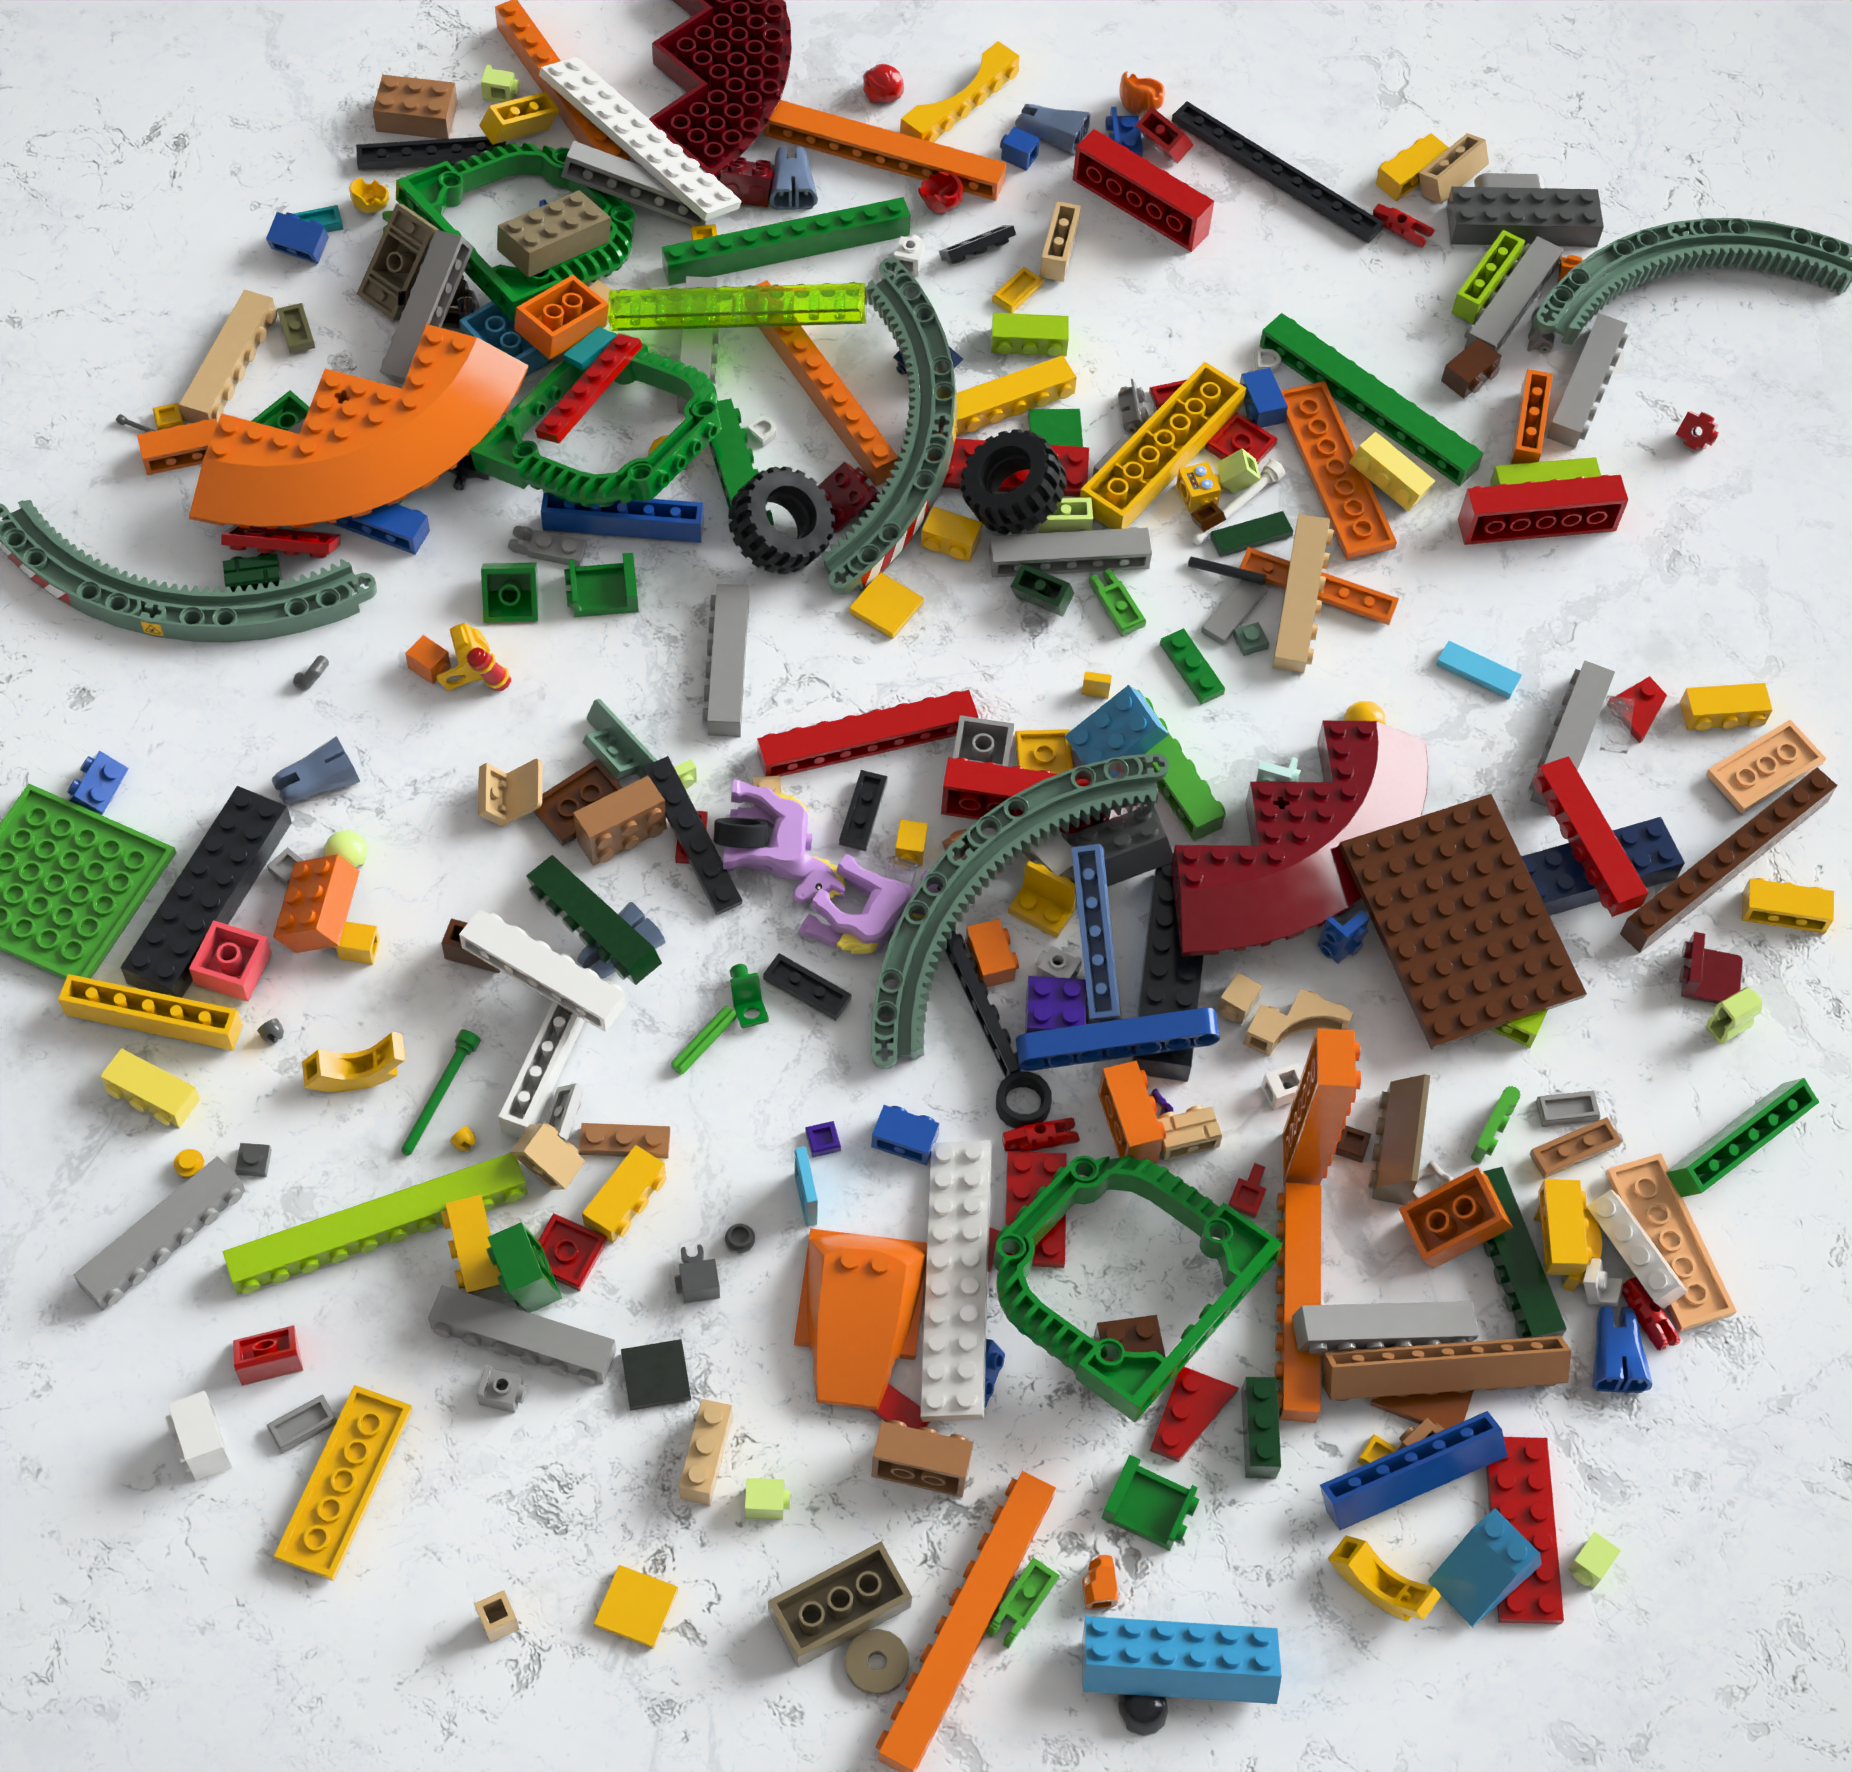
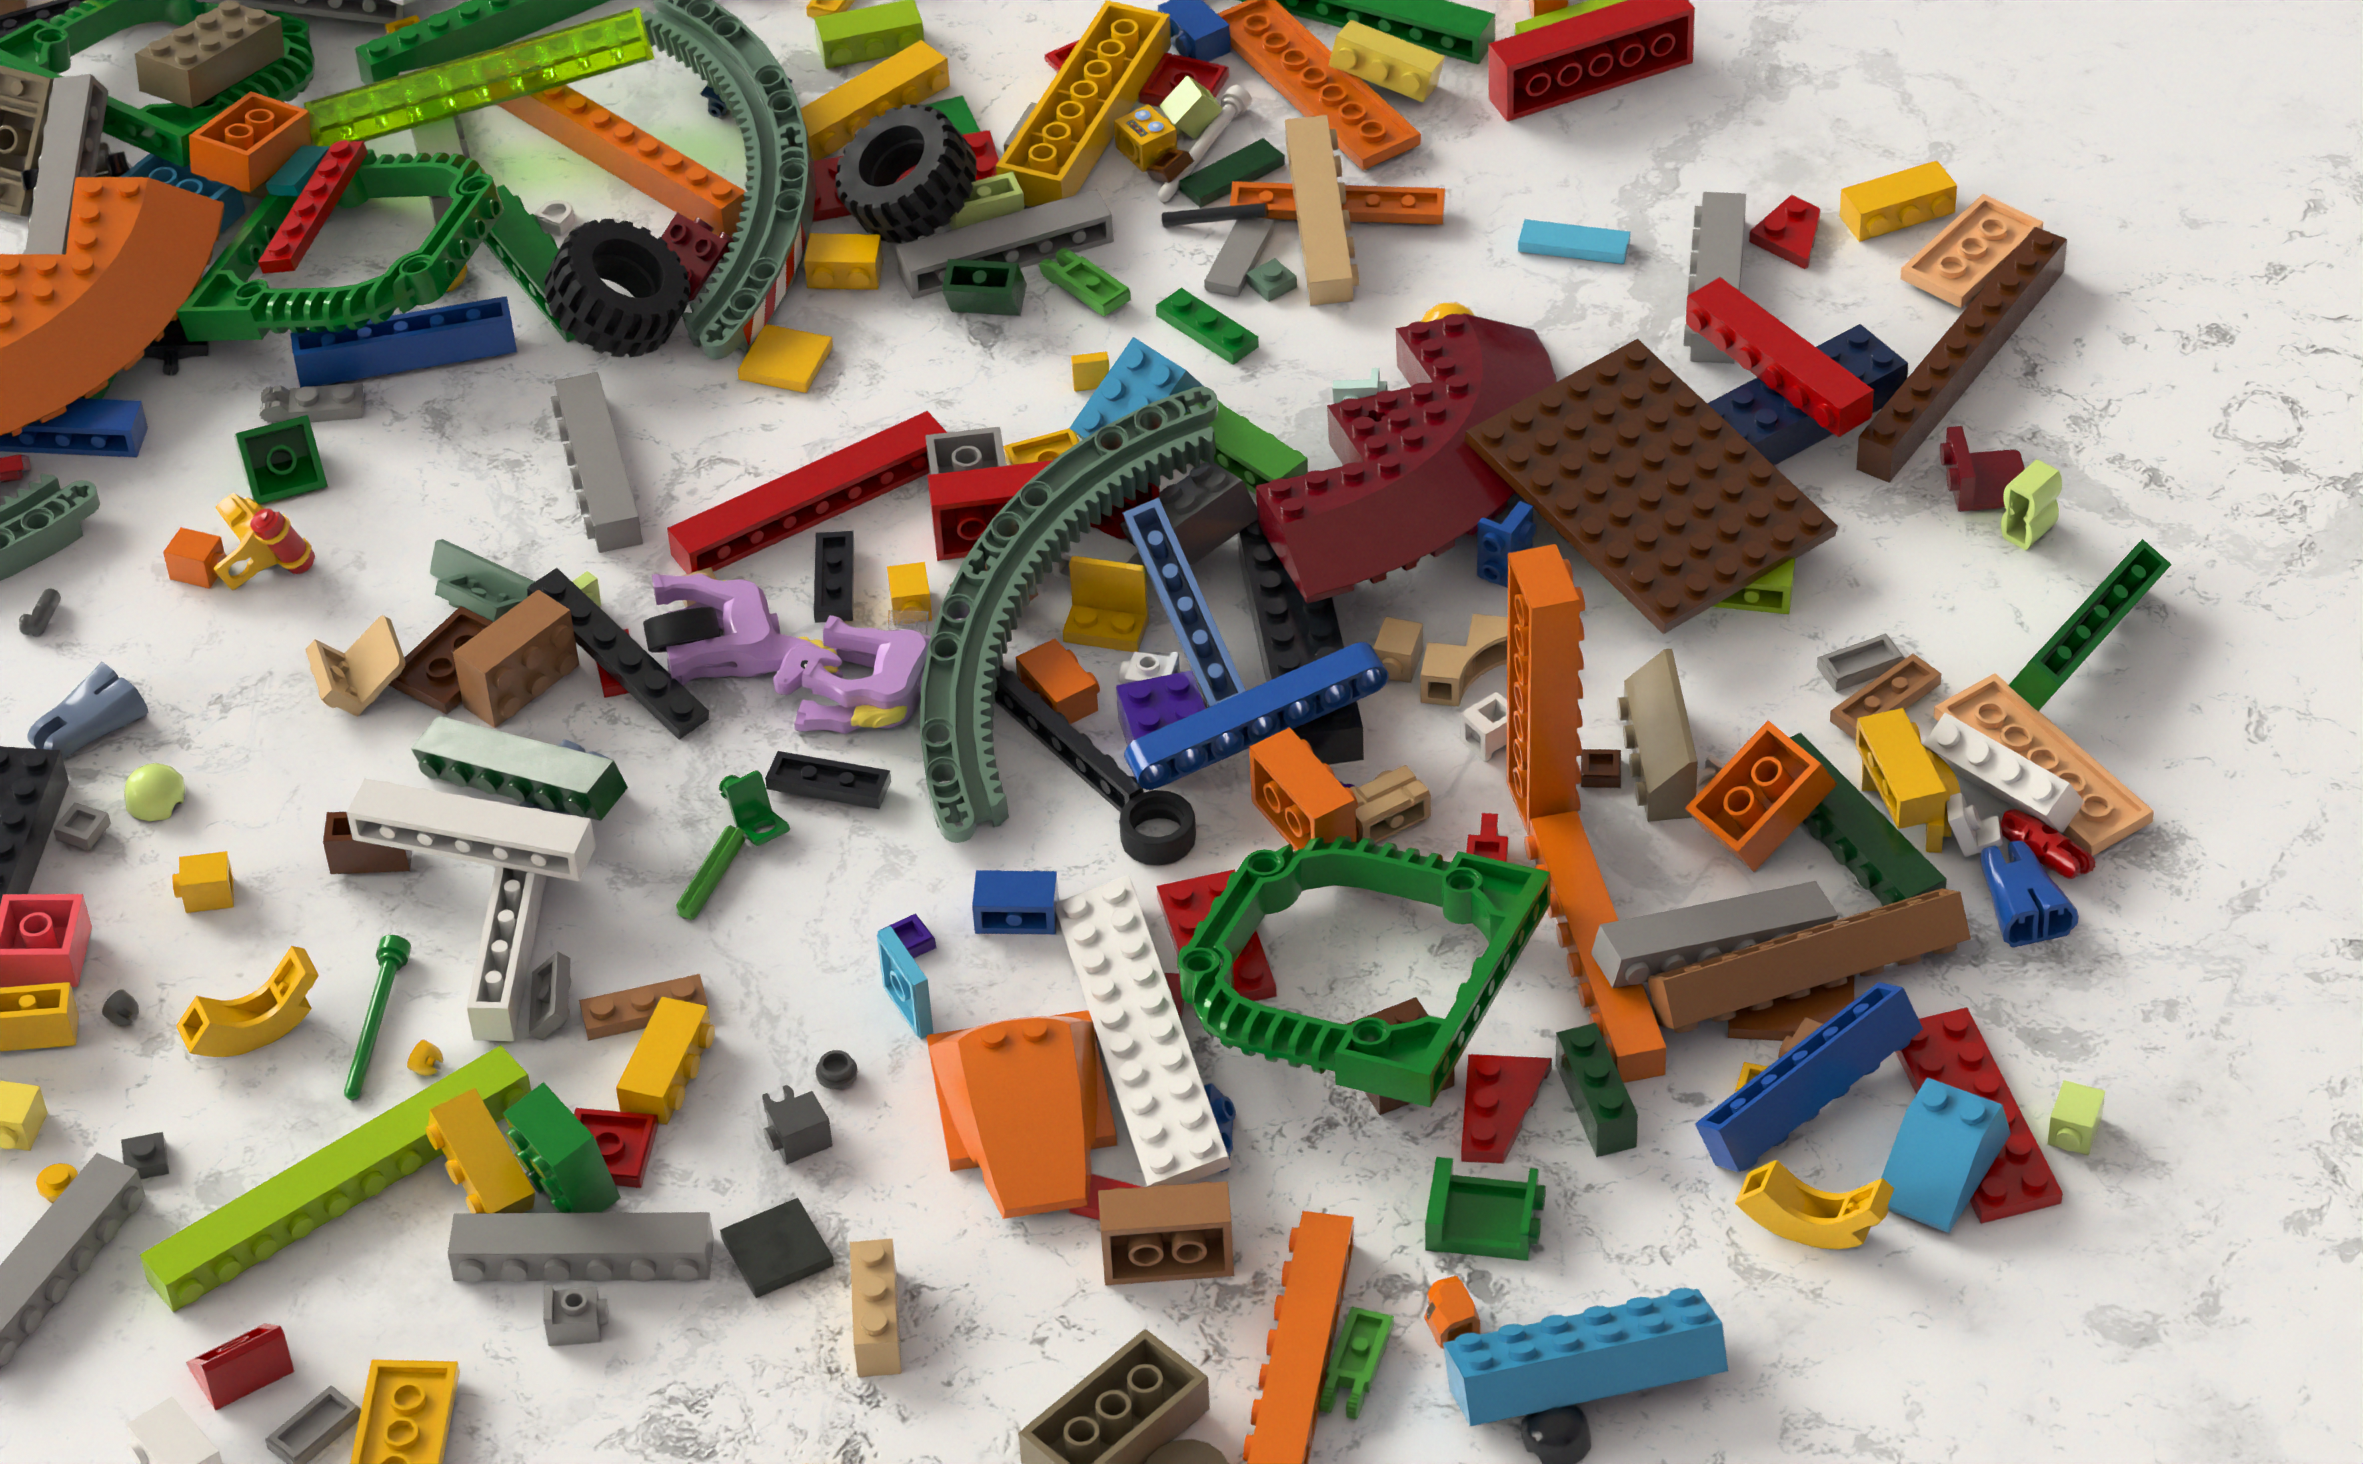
camera: 10 degrees left, 15 degrees down
(316, 903) = (137, 847): orange brick -> none
(548, 1156) = (548, 1038): tan brick -> none
(602, 588) = (404, 428): green panel -> none
(766, 1498) = (974, 1338): yellowish green brick -> none
(1040, 1135) = (1194, 858): red hinge -> none
(1132, 399) = (1027, 76): light grey hinge -> none
(1497, 1122) = (1777, 688): bright green hinge -> none
(1617, 724) = (1769, 251): clear plate -> none
(1788, 905) = (2054, 383): yellow brick -> none

